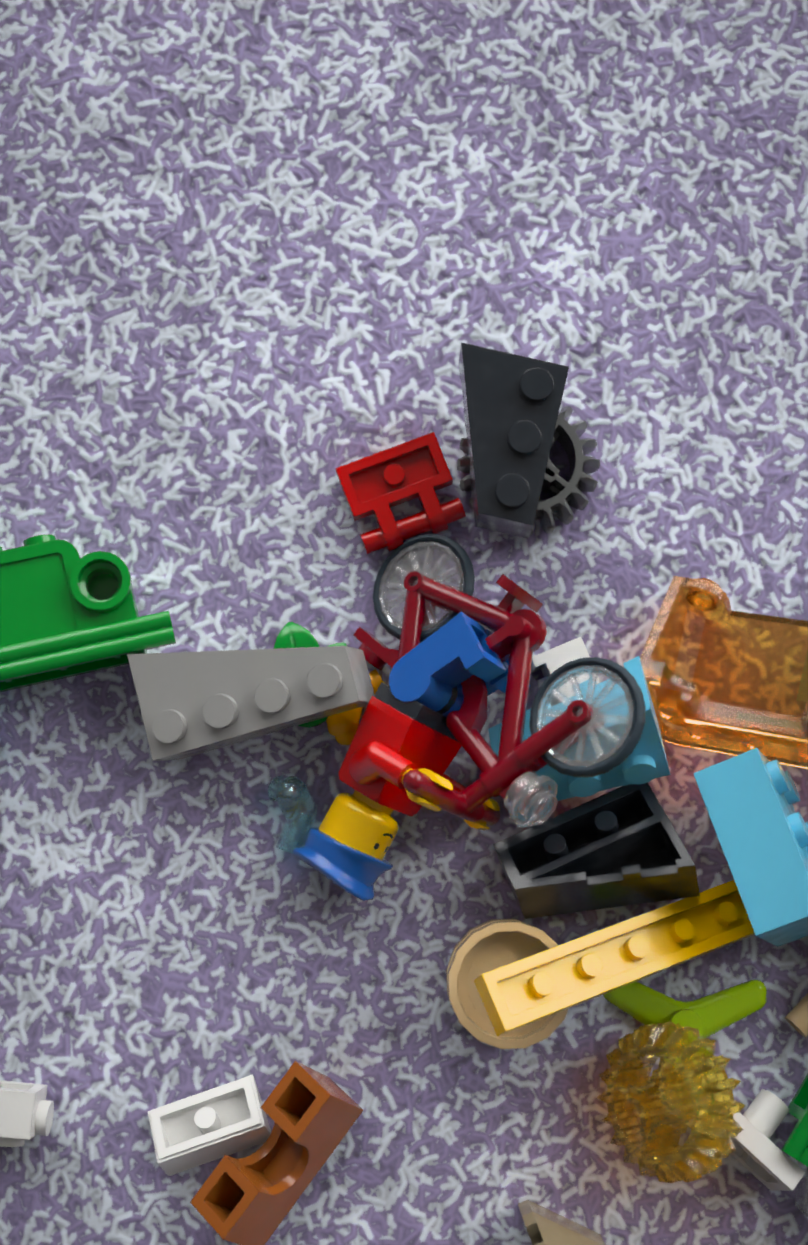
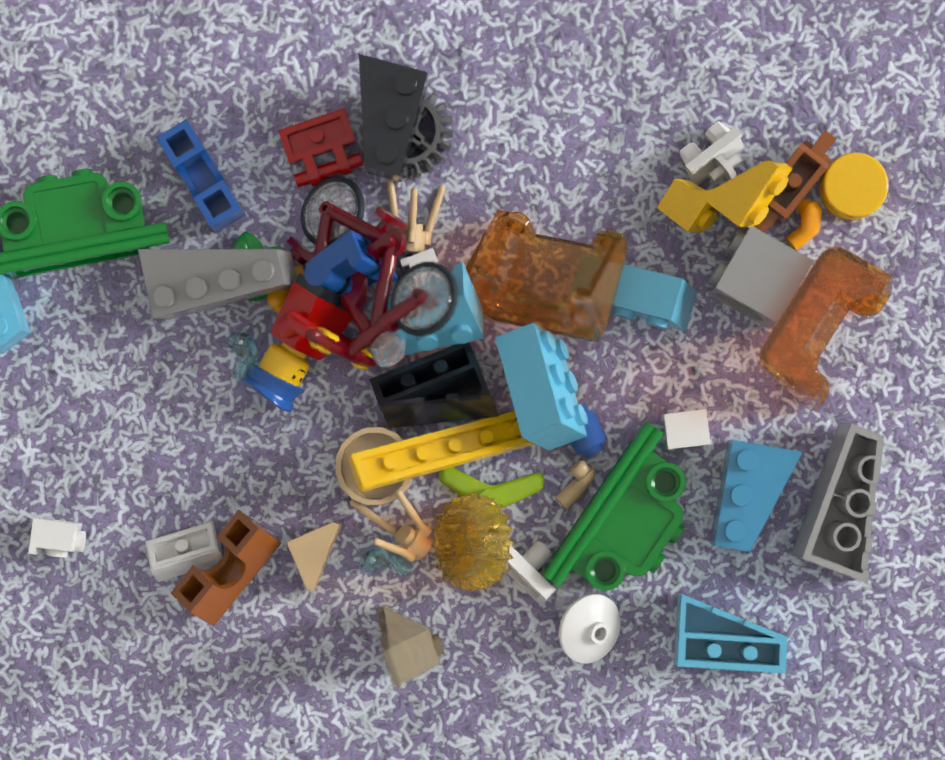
camera: 10 degrees right, 5 degrees up
(221, 539) = (201, 176): none -> blue arch
(412, 1121) = (312, 552): none -> tan slope
(527, 1124) = (380, 558): none -> clear light blue arm
(556, 622) = (414, 234): none -> tan plant
(568, 1098) = (412, 541): none -> tan plant

